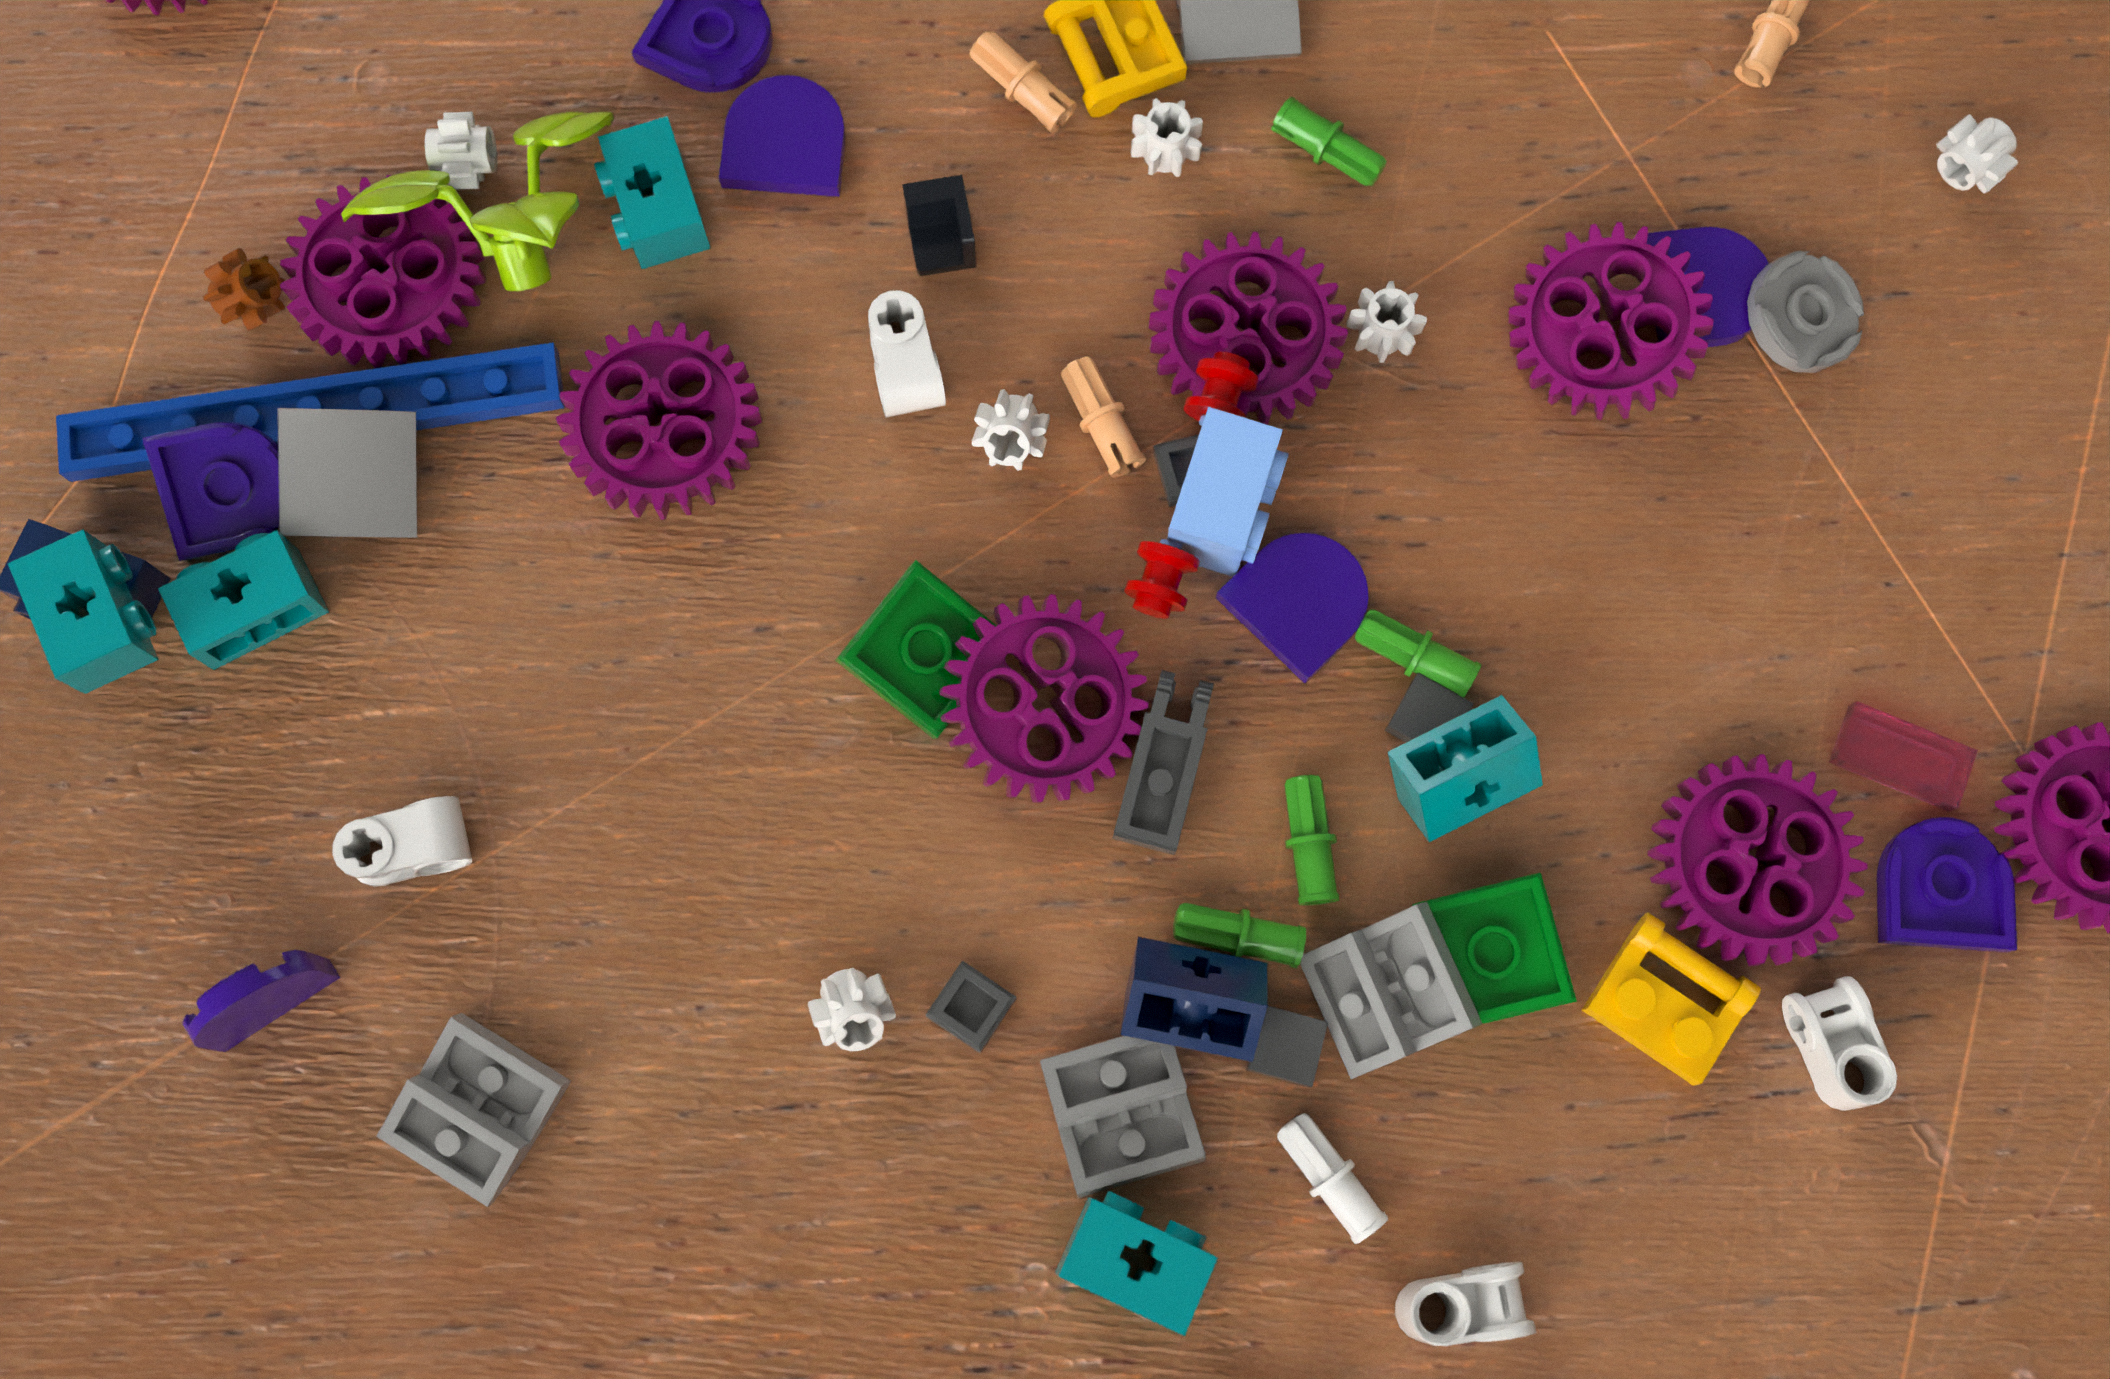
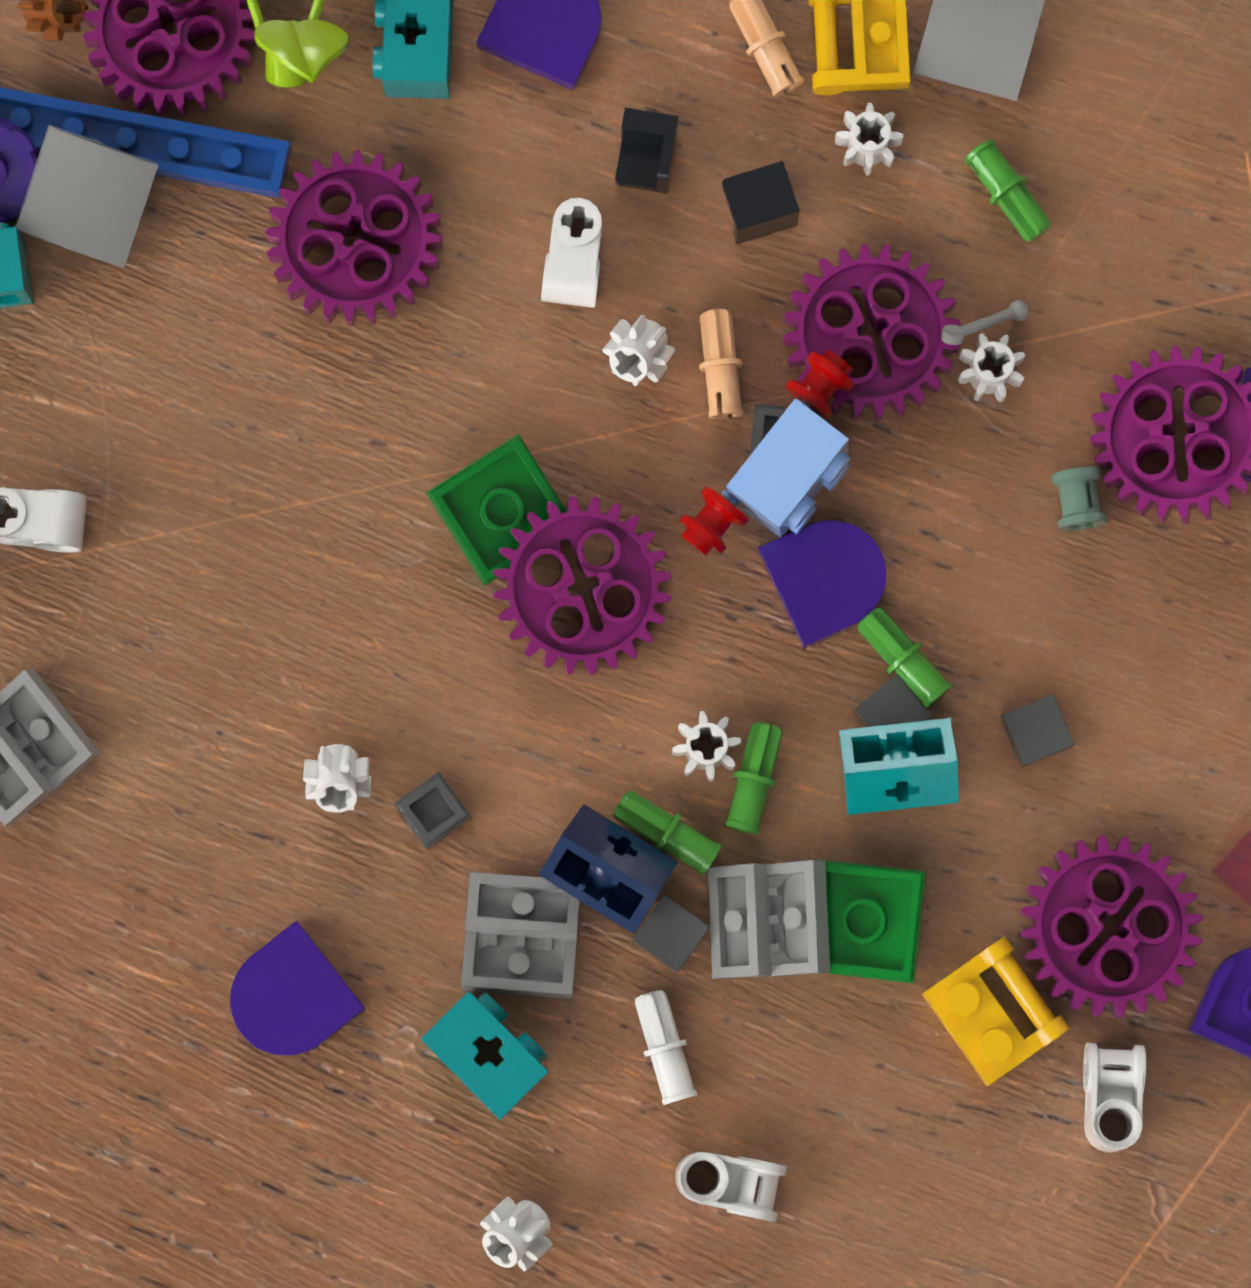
camera: 25 degrees right, 5 degrees up
(887, 1280) = (291, 996): none -> dark purple tile
(1082, 235) = (761, 202): none -> black panel
(1163, 771) = (657, 677): dark grey hinge -> none
(1243, 841) = (716, 736): none -> white gear
(1386, 259) = (954, 334): none -> light grey hinge
(1532, 422) = (1079, 499): none -> sand green bush
(1587, 680) = (1037, 730): none -> dark grey tile

